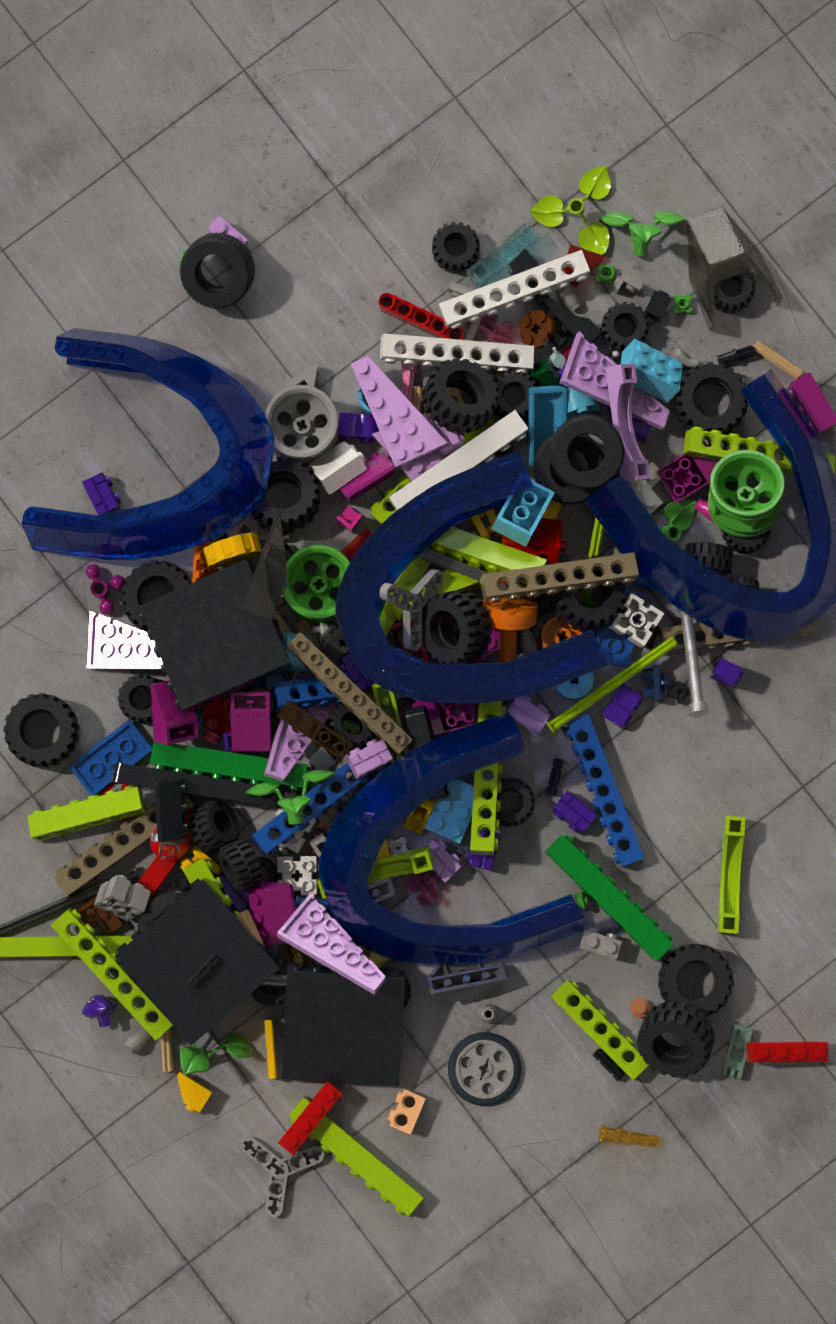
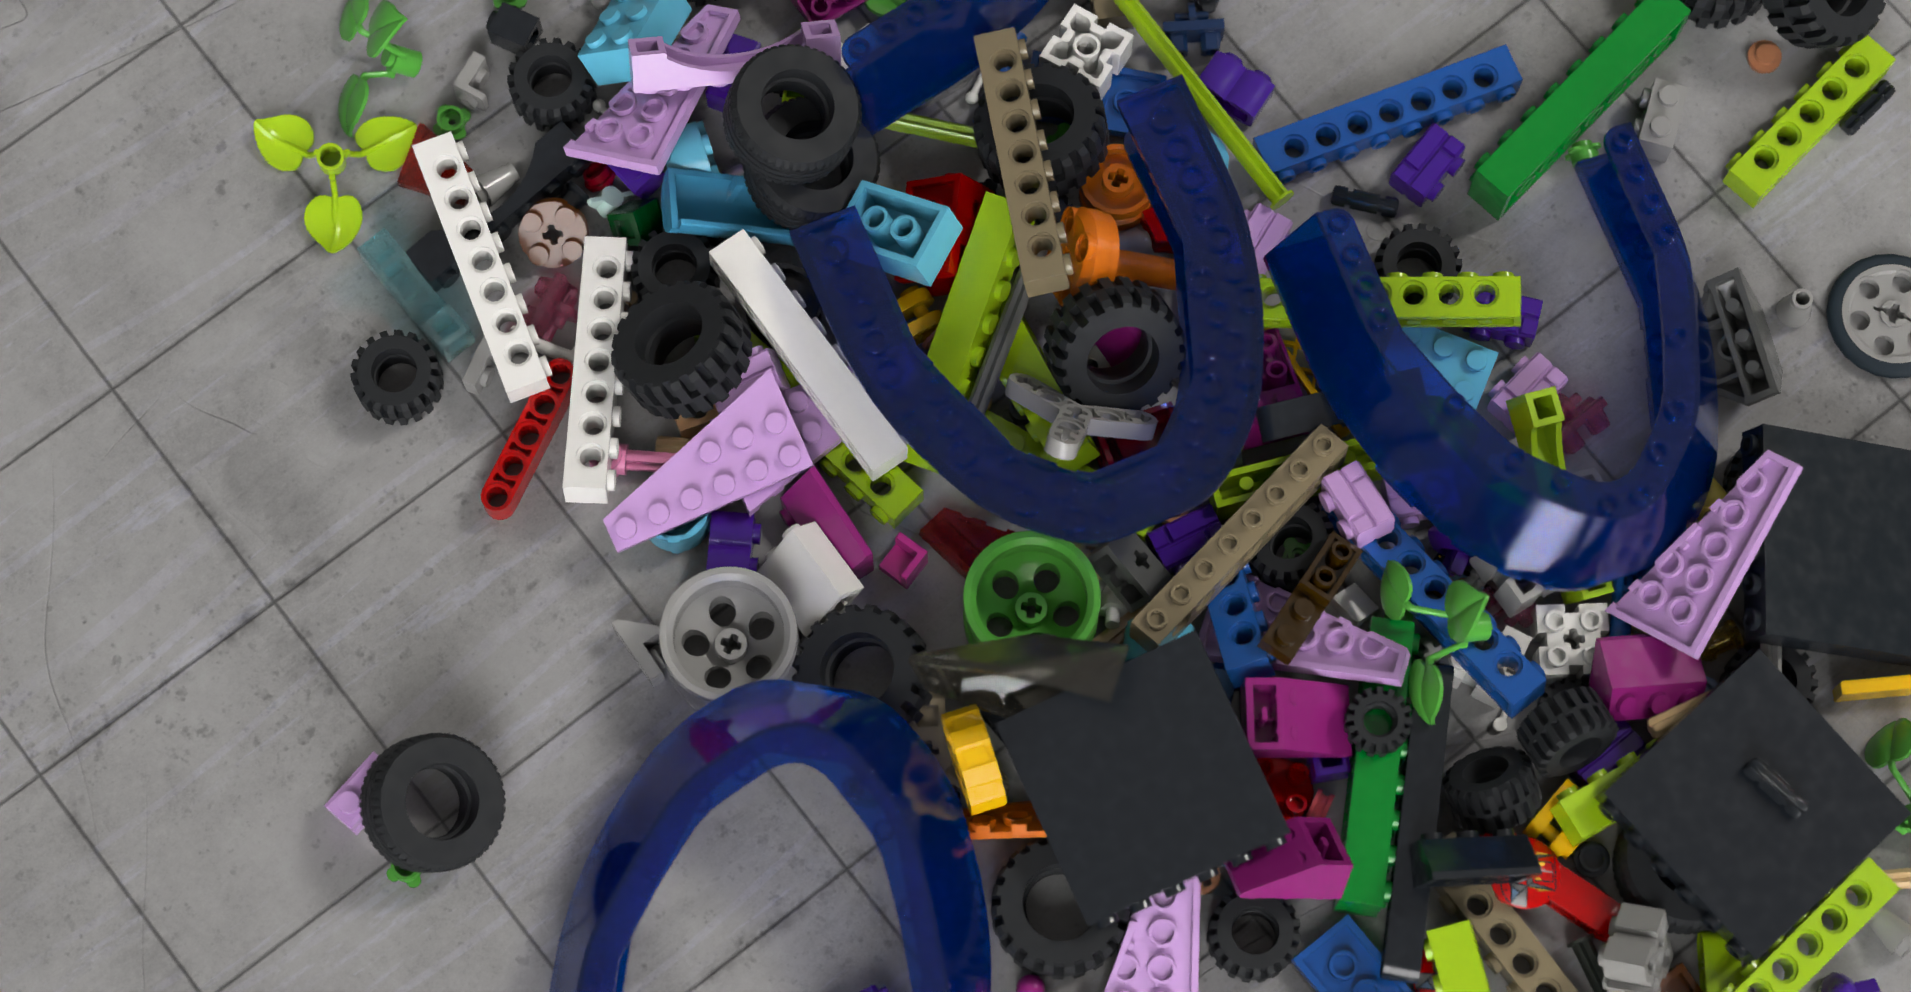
camera: 90 degrees left, 10 degrees down
(236, 757) = (1381, 700): none -> black tyre

